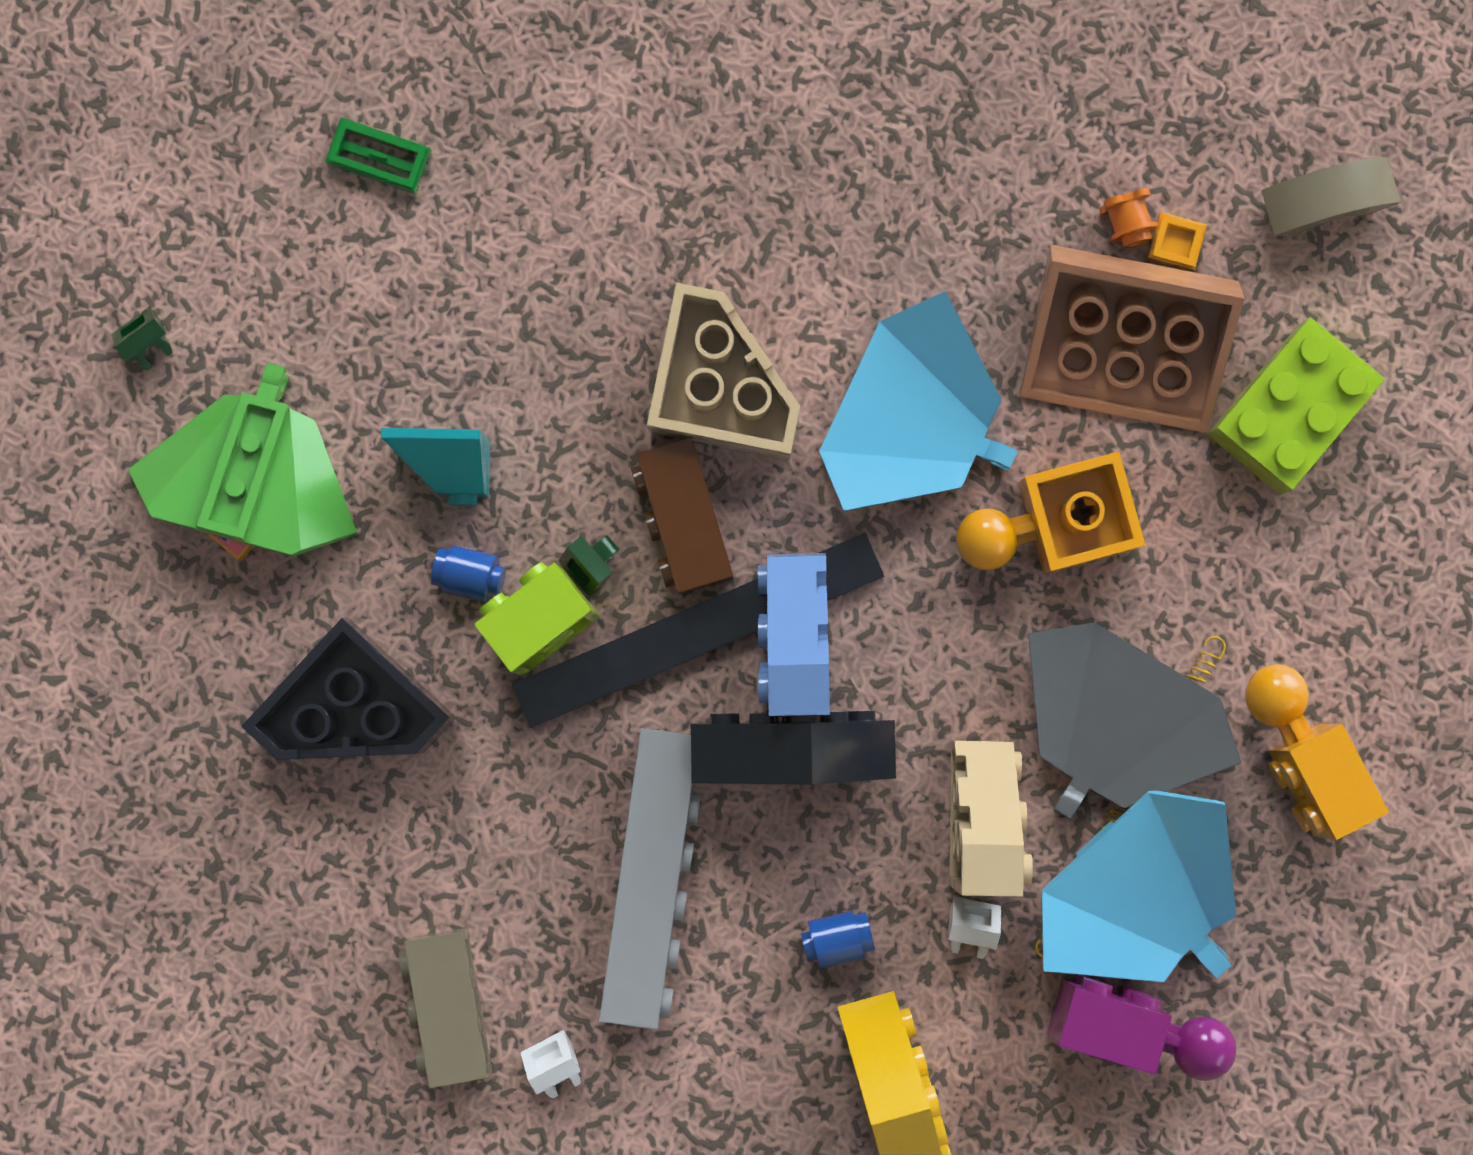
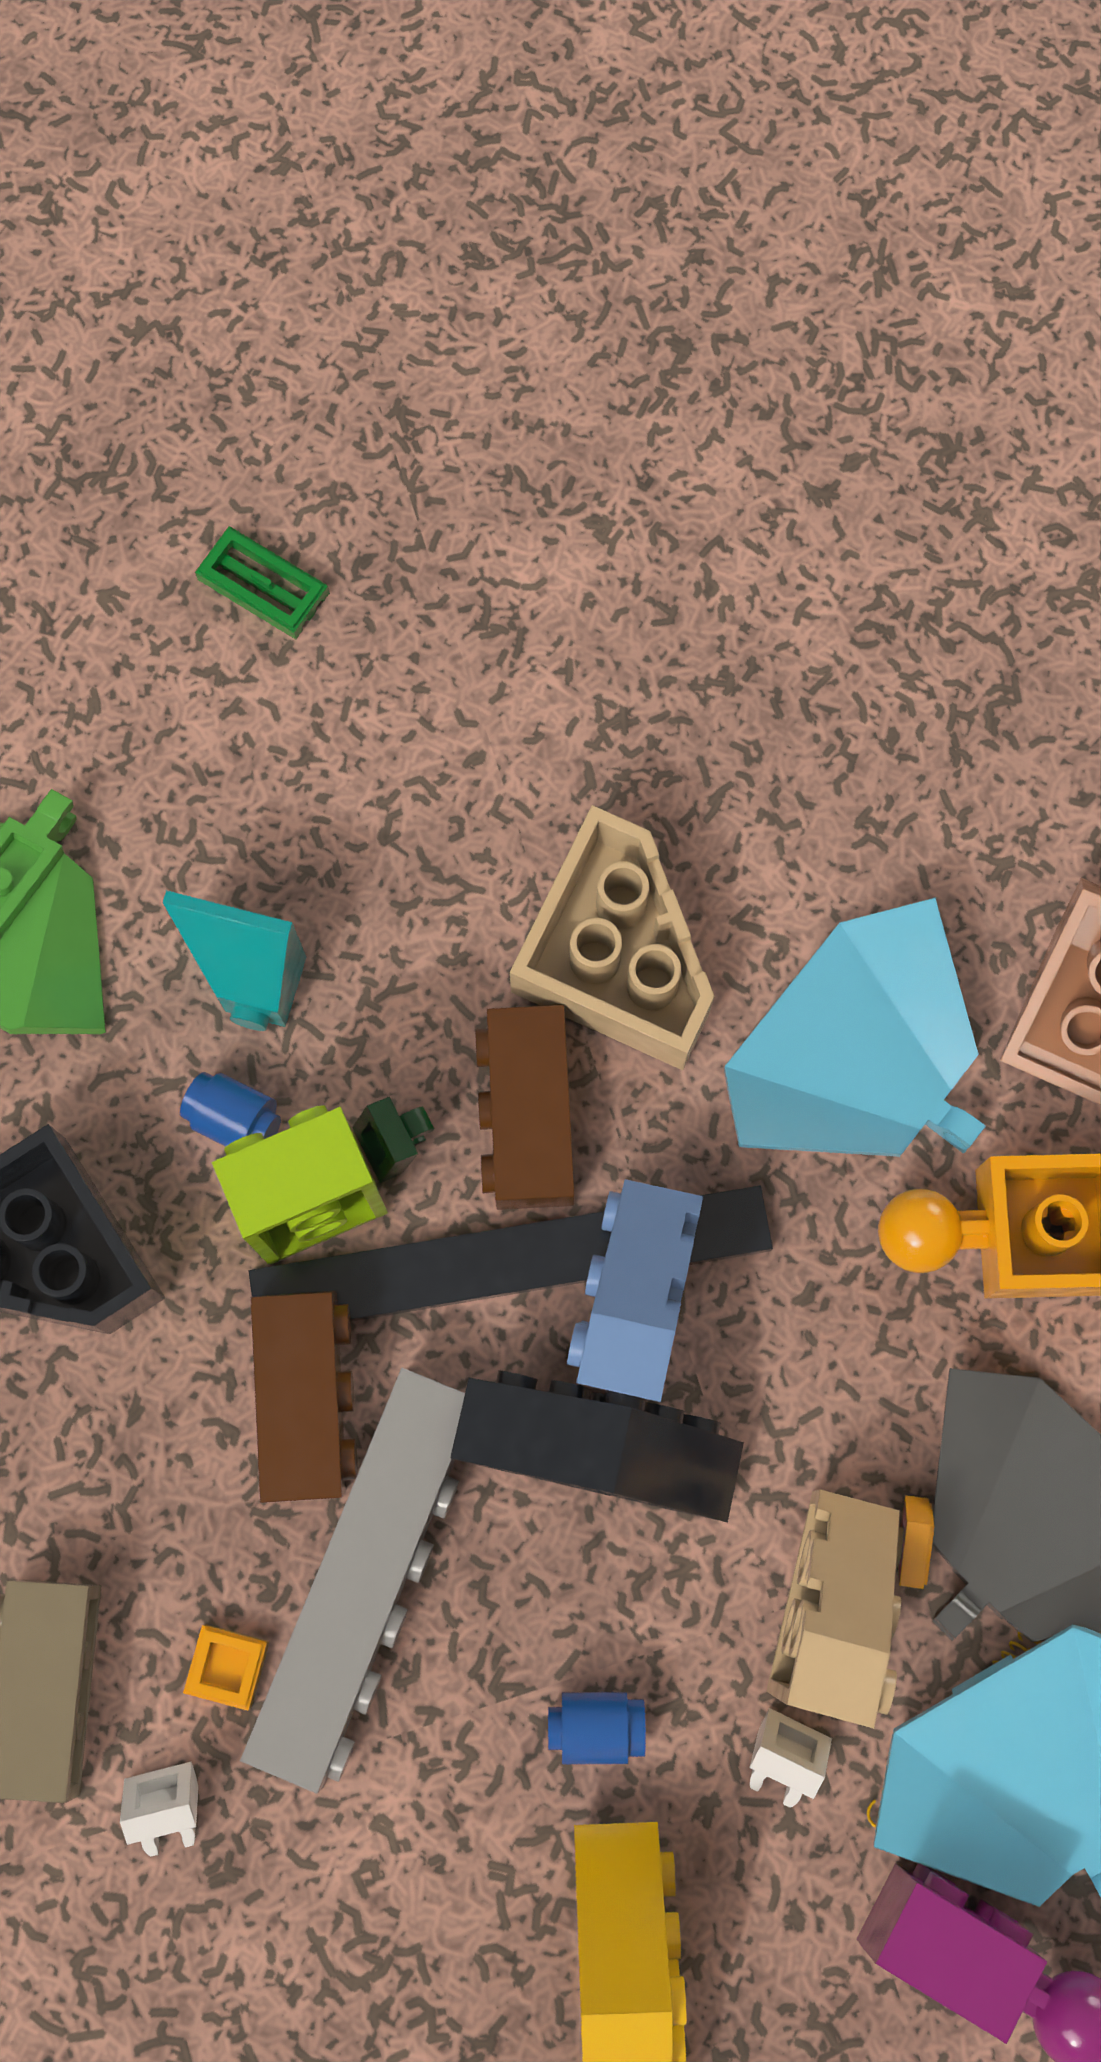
camera: 10 degrees right, 10 degrees down
(570, 961) = (226, 1667): none -> light orange tile
(575, 763) = (302, 1396): none -> reddish brown brick
(1030, 759) = (917, 1542): none -> light orange tile

